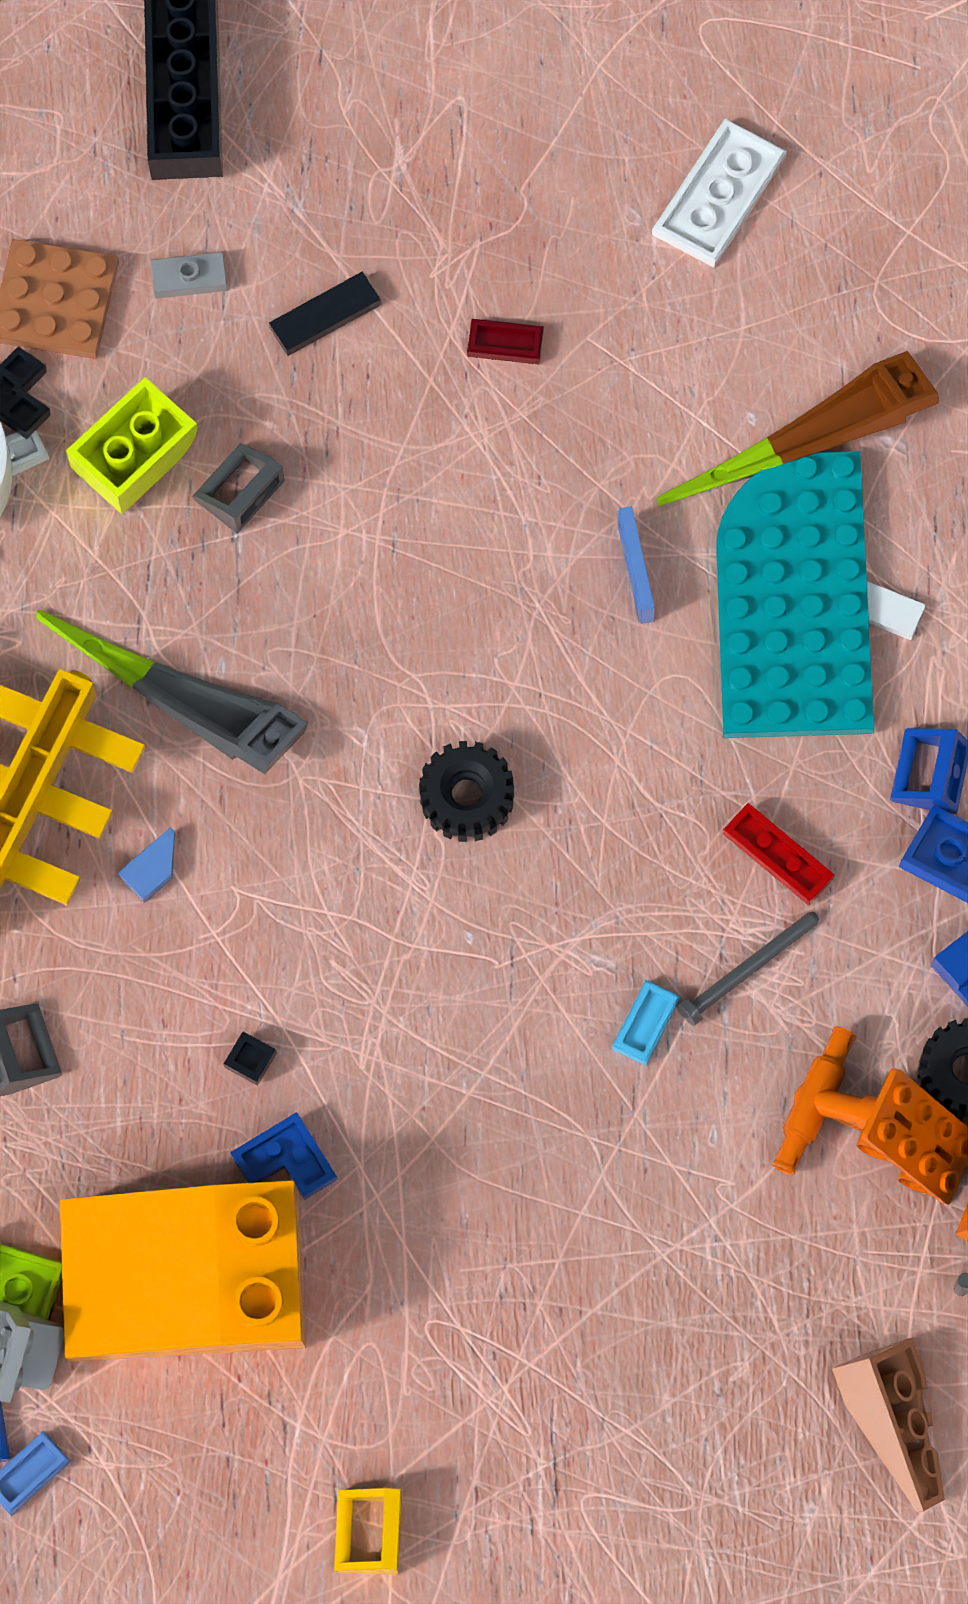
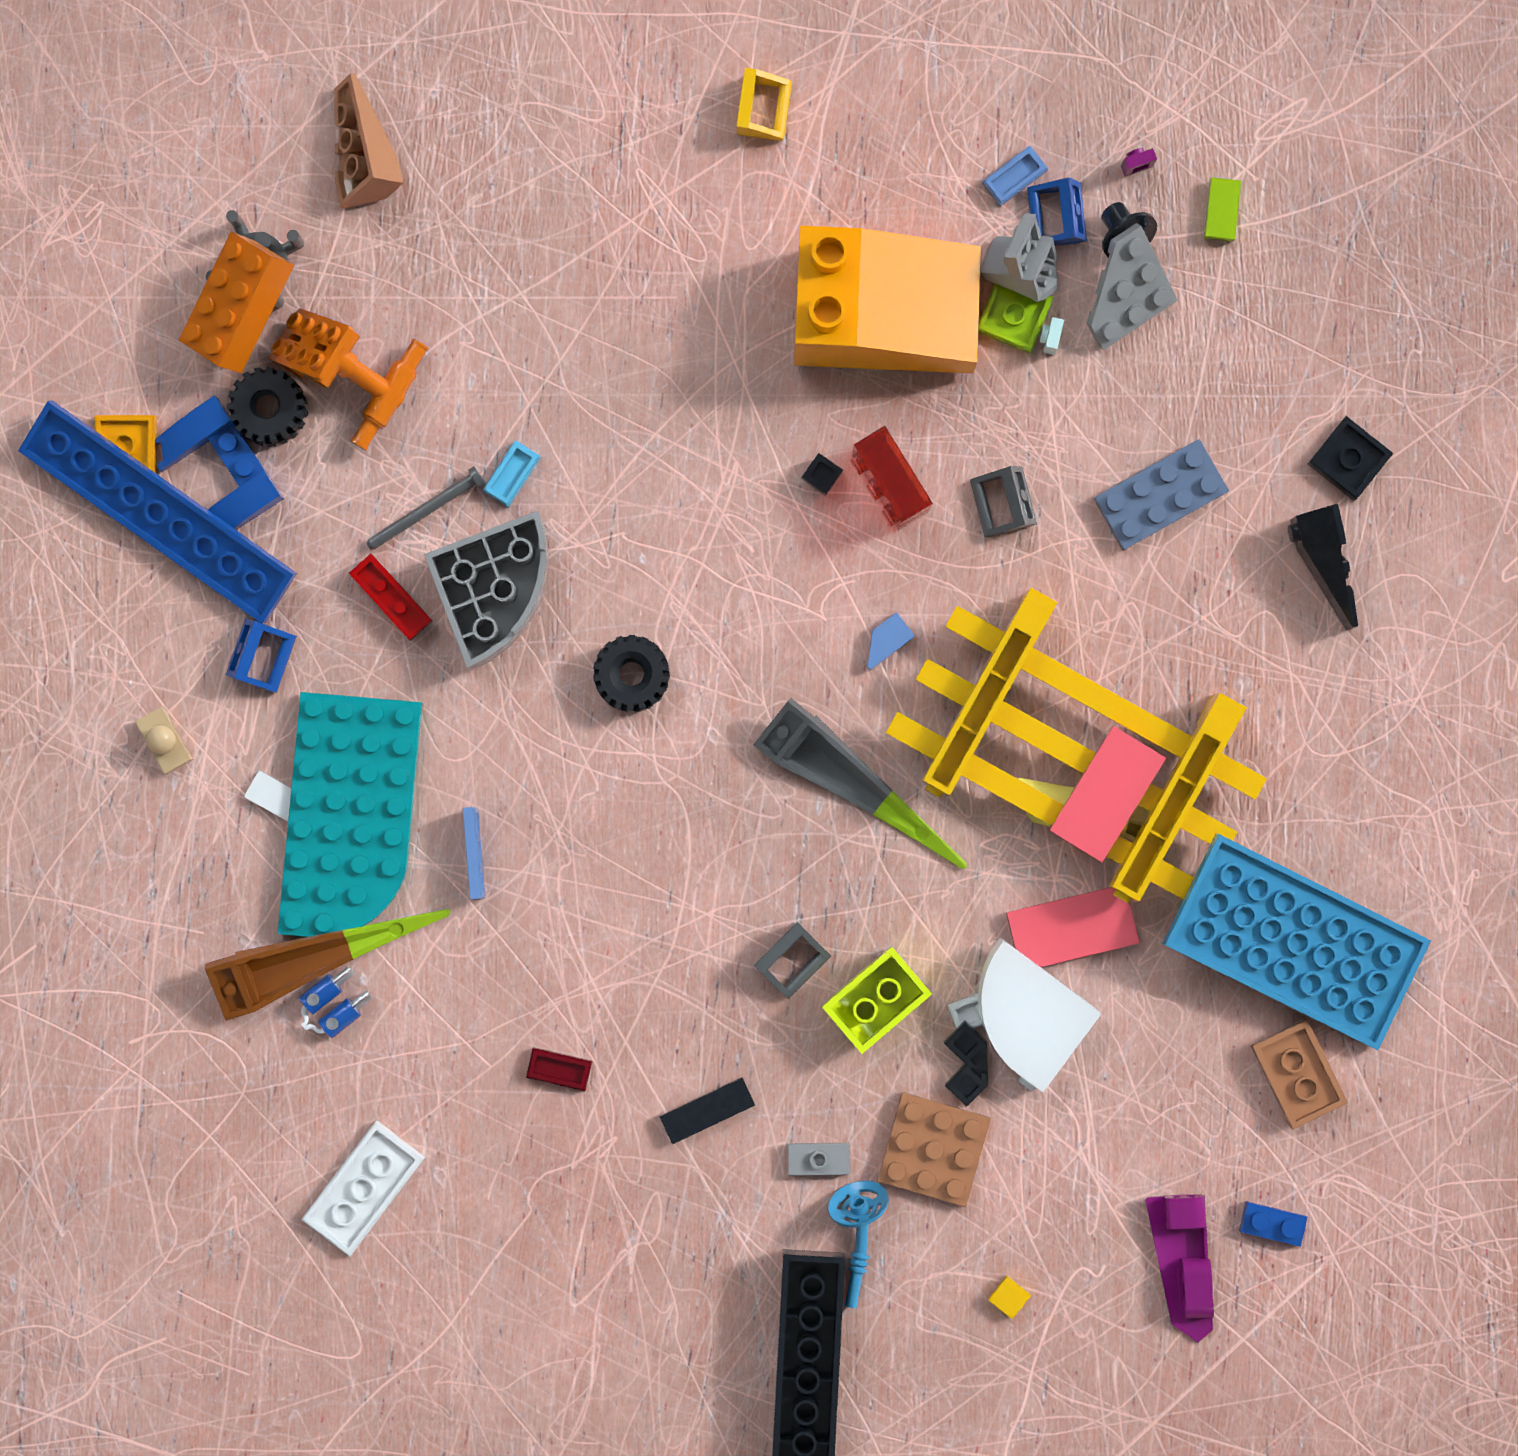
camera: 175 degrees left, 15 degrees up
(135, 214) = (861, 1213): none -> dark azure dish
(161, 1051) = (890, 478): none -> clear red piece
(287, 1147) = (801, 401): blue plate -> none
(653, 875) = (492, 585): none -> light grey brick
(772, 371) = (322, 994): none -> blue piece

